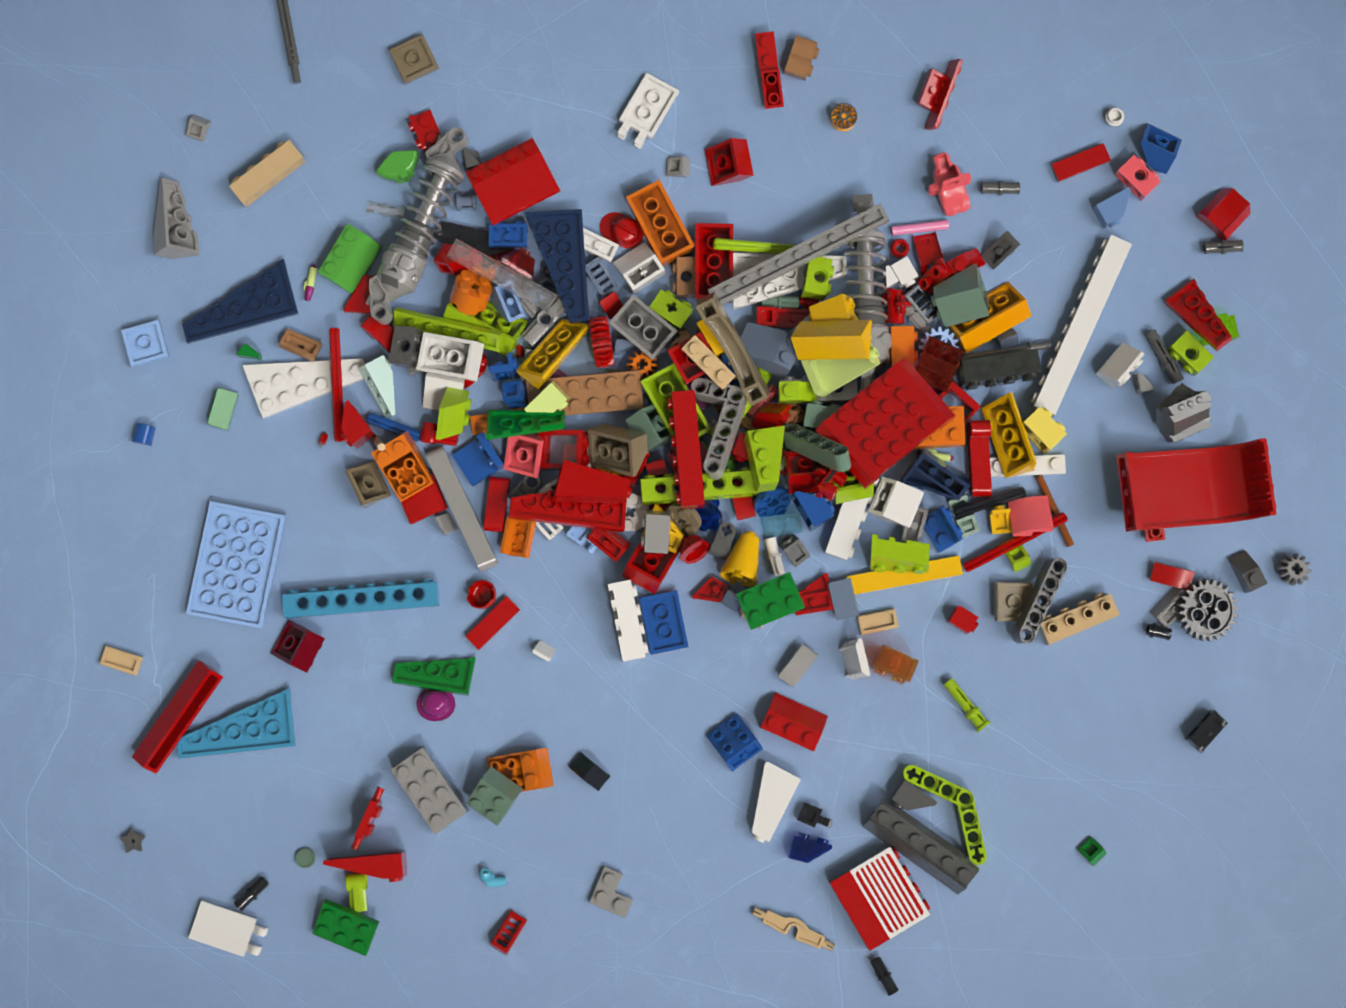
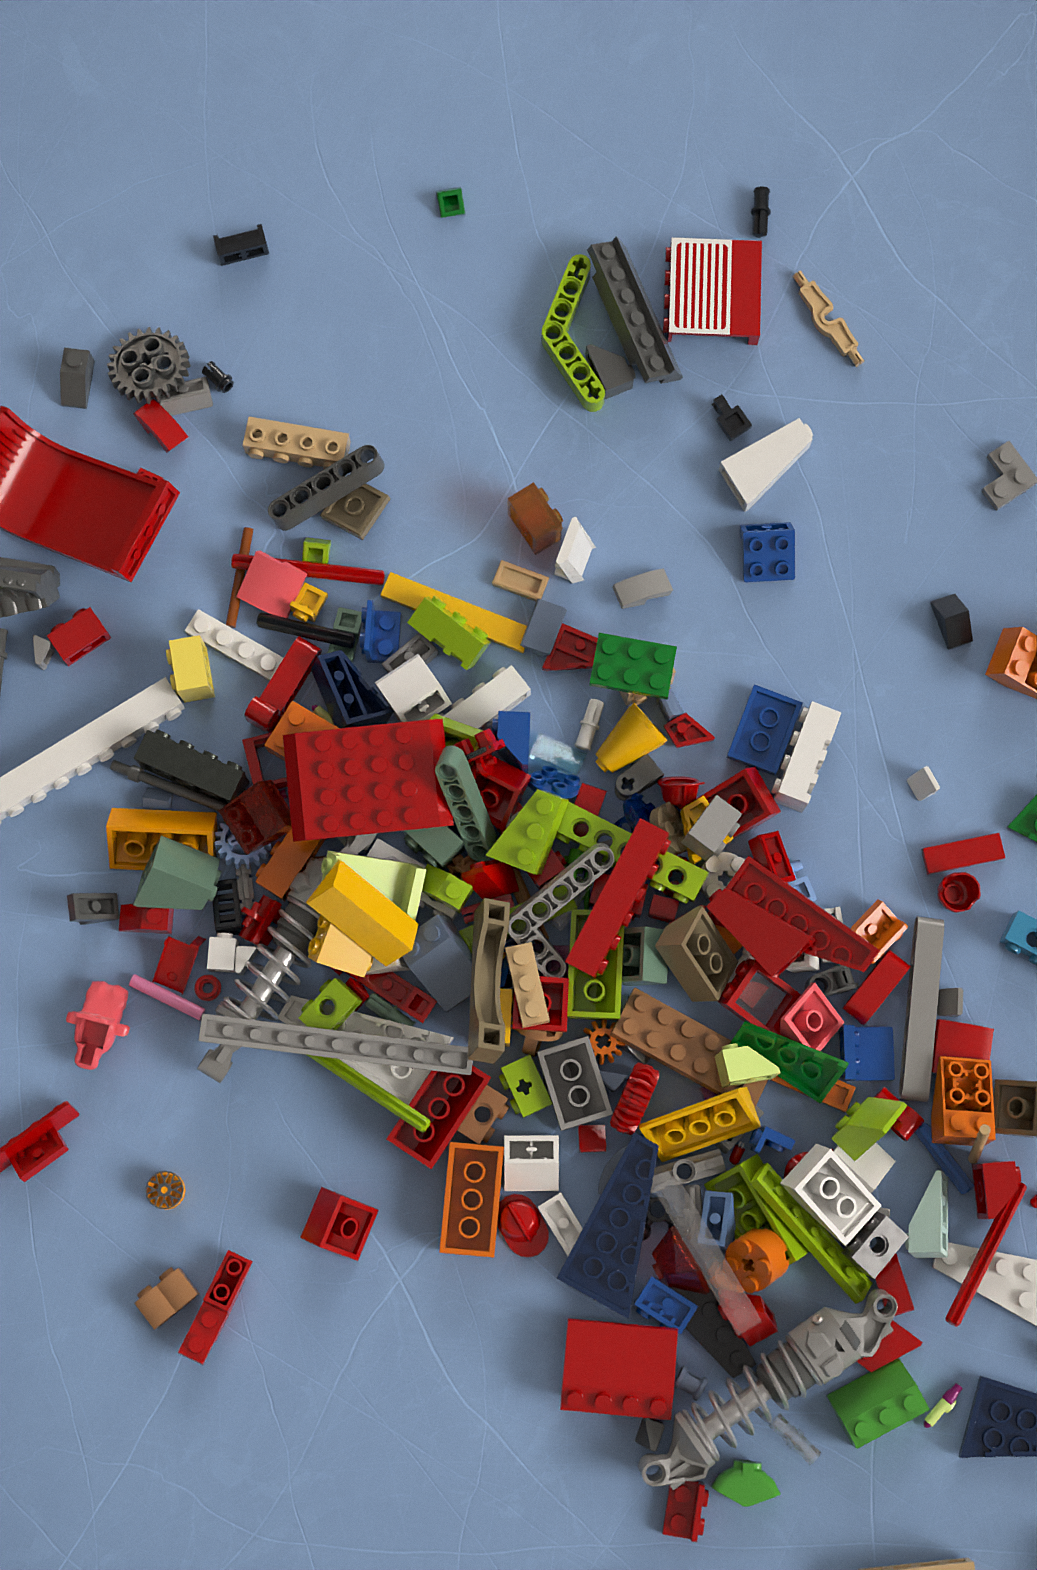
camera: 145 degrees left, 5 degrees down
(292, 341) = (1007, 1346): medium nougat piece -> none
(514, 394) = (777, 1102): blue brick -> none
(597, 261) = (594, 1179): sand blue slope -> none
(647, 109) = (393, 1357): white tile -> none
(678, 166) = (403, 1259): light grey slope -> none
(794, 549) = (563, 718): dark grey bracket -> none
(794, 722) = (687, 529): red slope -> none
(806, 849) = (759, 387): clear blue slope -> none
(935, 275) = (191, 924): red hips -> none
(963, 620) = (424, 521): red brick -> none
(972, 713) = (481, 419): lime pin -> none
(1000, 188) = (41, 983): dark grey pin -> none
(1009, 436) = (233, 686): yellow slope -> none
(1119, 364) = (51, 686): white slope -> none
(1127, 408) = (78, 635): none -> red brick
(1297, 563) = (32, 345): light grey gear -> none

